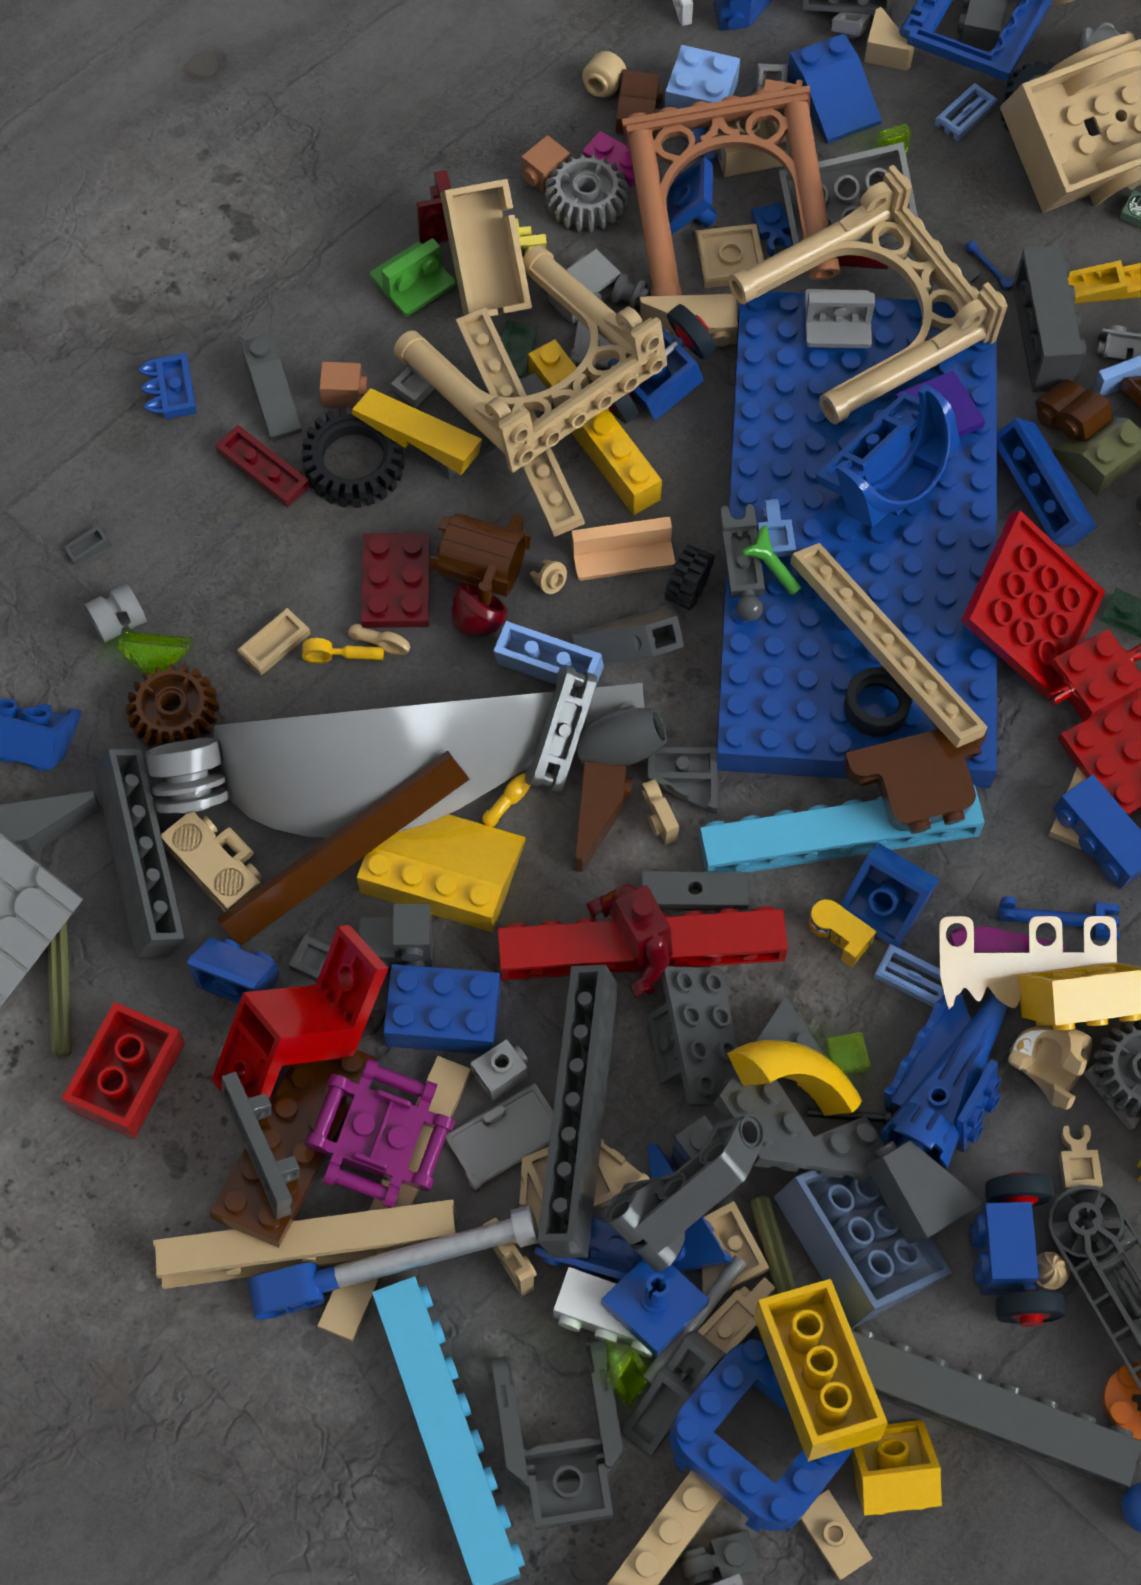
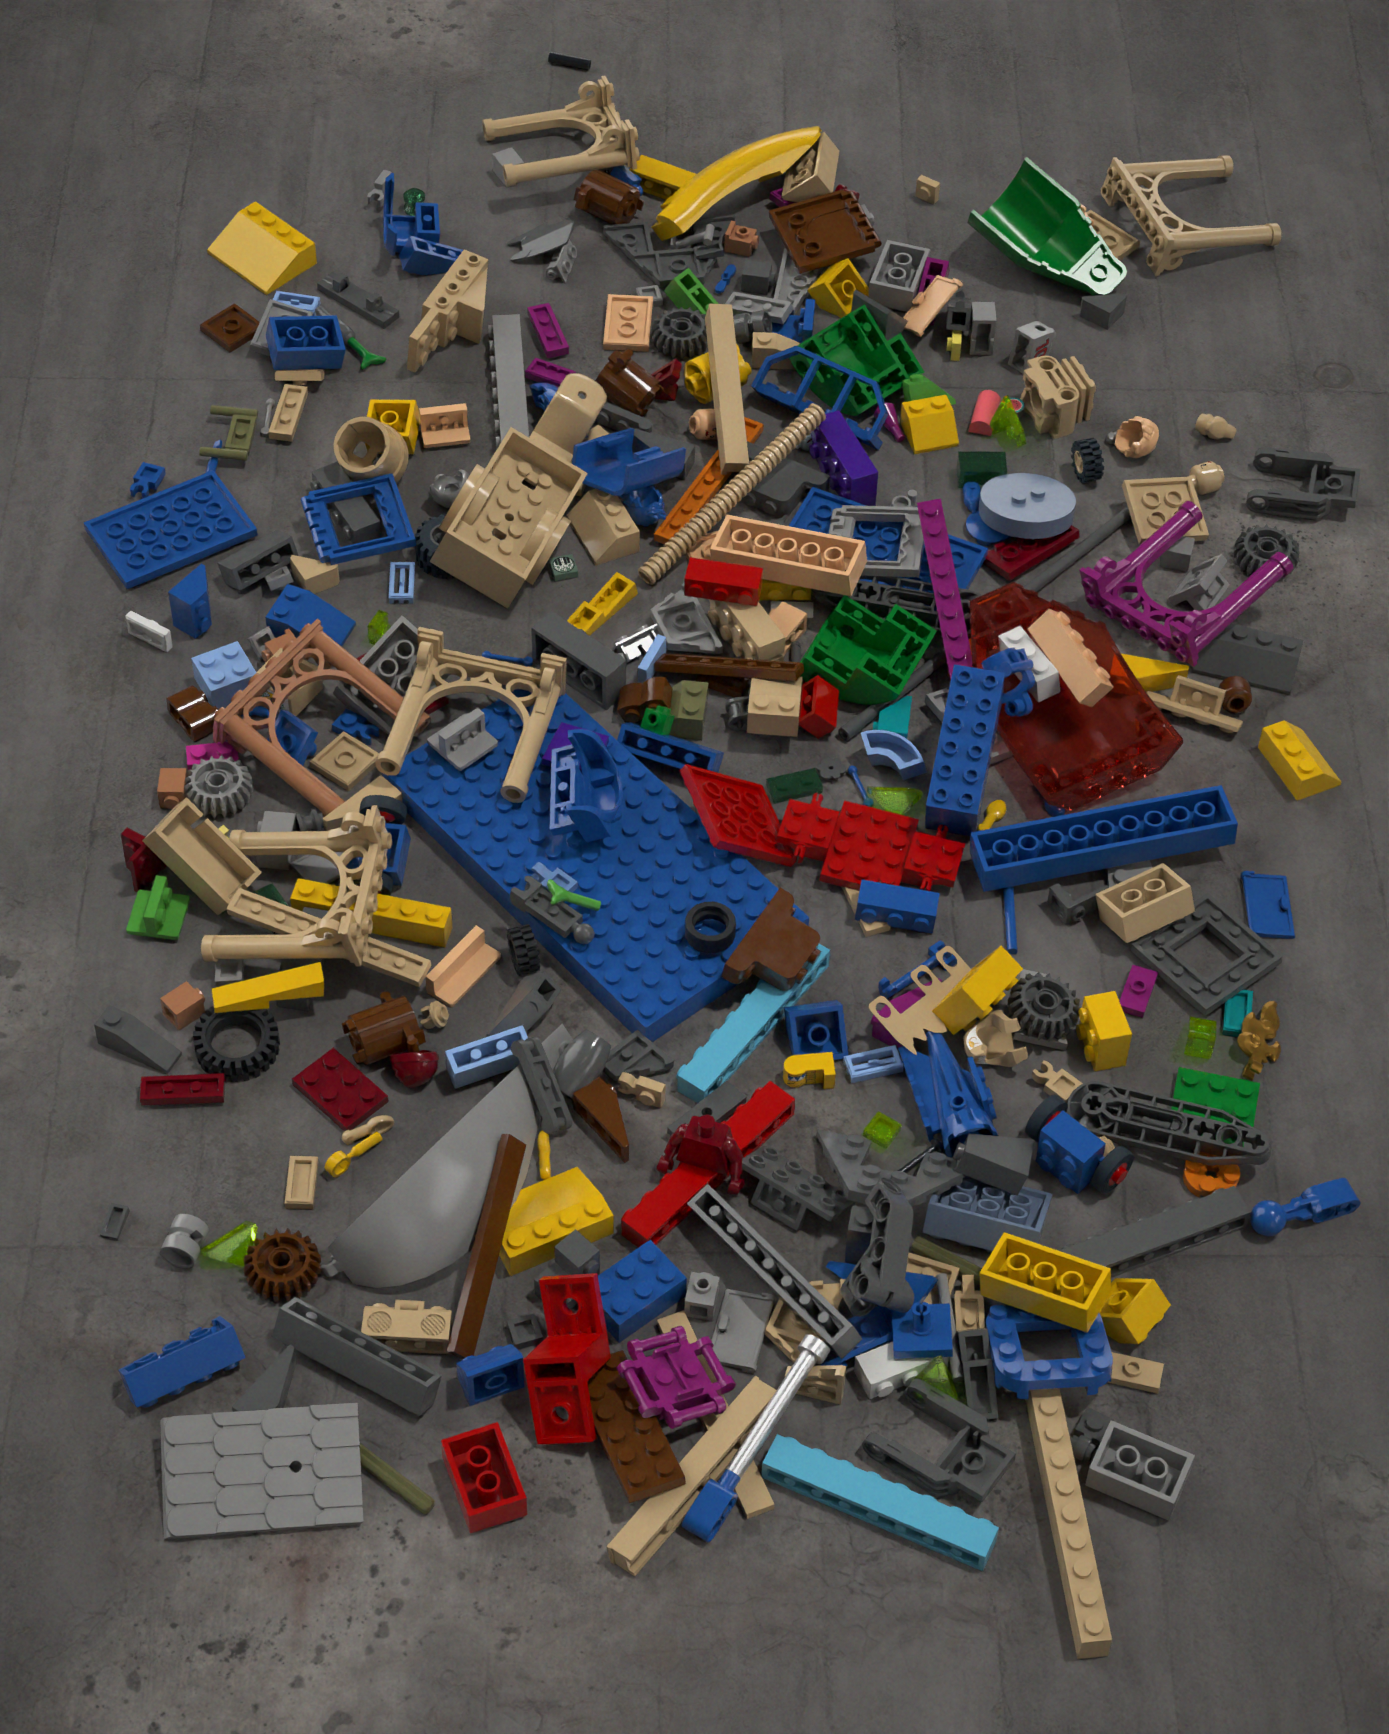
camera: 45 degrees left, 15 degrees down
(171, 386) = (68, 1087): blue plate -> none
(186, 769) = (348, 1291): light grey wheel -> none
(271, 1173) = (617, 1435): dark grey hinge -> none
(603, 74) = (153, 710): tan head -> none
(814, 1072) = (876, 1145): yellow brick -> none
(889, 645) = (686, 889): tan plate -> none
(1059, 442) = (658, 720): none -> green plate

